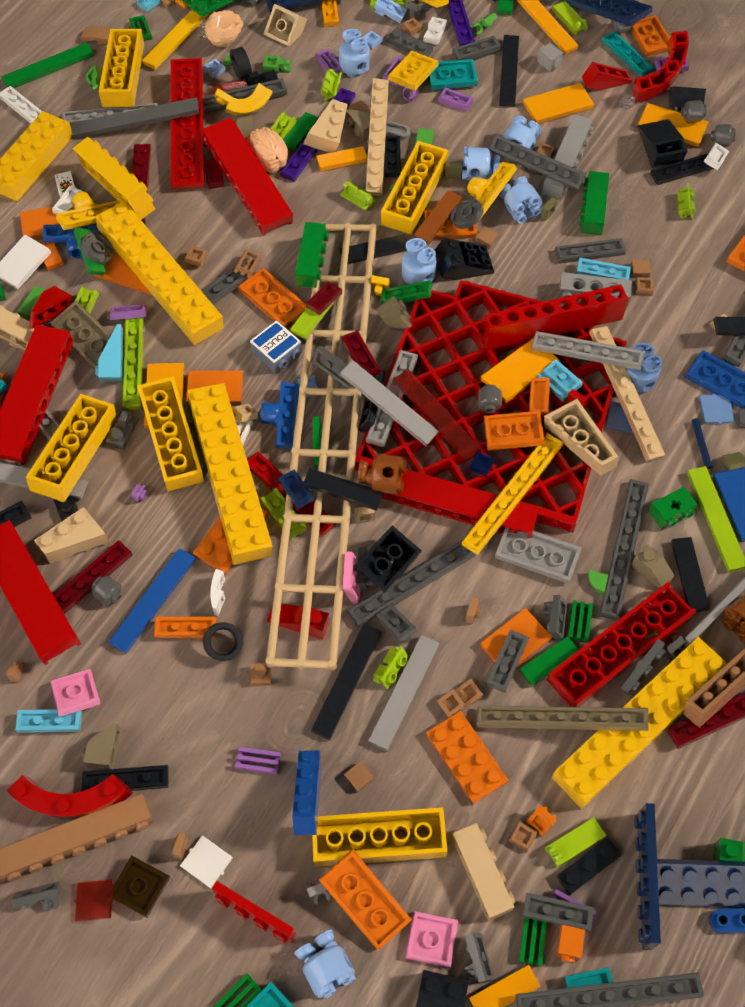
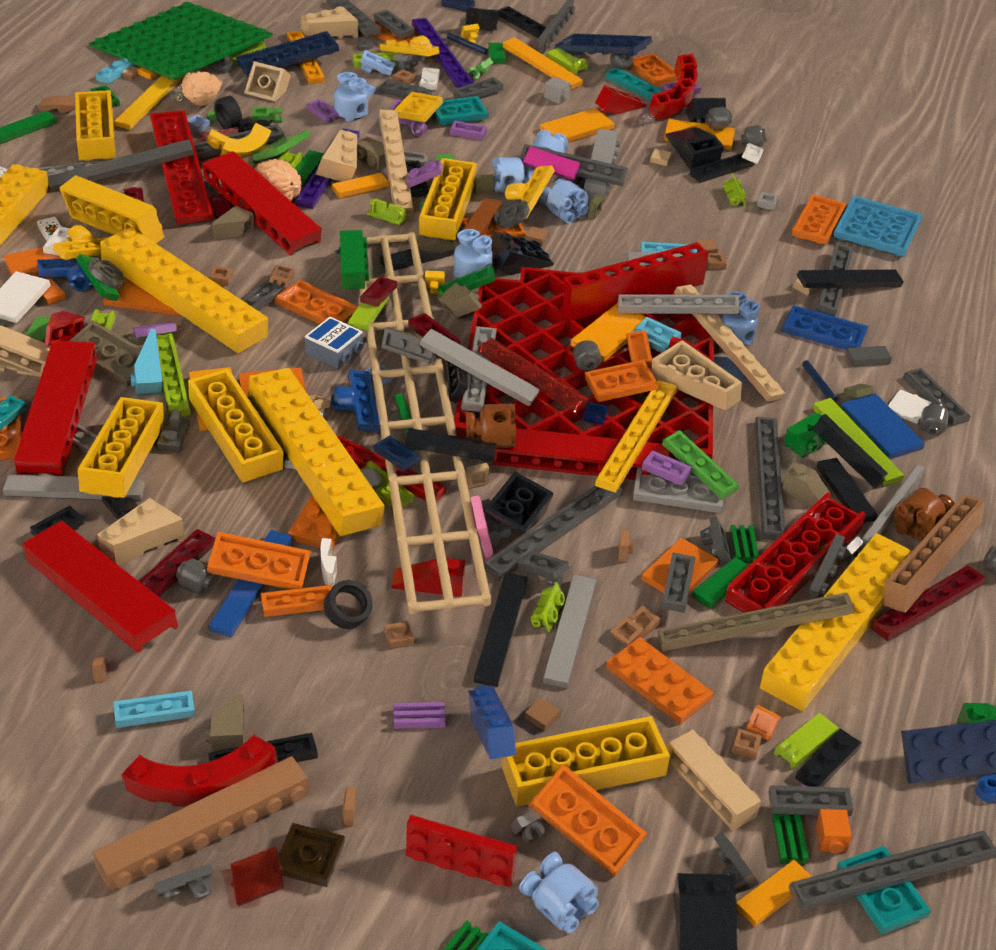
camera: 15 degrees left, 20 degrees down
(75, 692) = (180, 676): bright pink tile -> none
(94, 77) = (63, 138): bright green plate -> none
(139, 493) = (210, 486): medium lavender plate -> none
(159, 585) = (258, 561): none -> orange plate
(206, 861) = (383, 822): white piece -> none
(219, 196) = (233, 224): none -> dark tan slope
(270, 509) = (372, 477): none -> dark grey tile
(279, 107) = (281, 145): none -> bright green tile
(330, 84) = (331, 125): lime hinge -> none
(398, 157) = (424, 173): none -> medium lavender plate
(431, 939) = (673, 853): bright pink tile -> none
(509, 71) = (517, 105): black tile -> none
(523, 163) = (563, 167): none -> dark pink tile
(530, 533) = (666, 467): none -> medium lavender plate
(561, 534) = (701, 464): none -> bright green tile
(590, 250) = (660, 235): dark grey tile -> none
(595, 202) = (641, 198): green brick -> none
(598, 581) = (751, 506): bright green tile -> none
(627, 150) = (661, 157): none -> tan tile
(648, 884) = (899, 752): dark blue plate -> none
(703, 537) = (850, 451): none -> black tile
(714, 217) = (767, 201): none -> light grey plate
(716, 409) = (824, 353): medium blue piece -> none

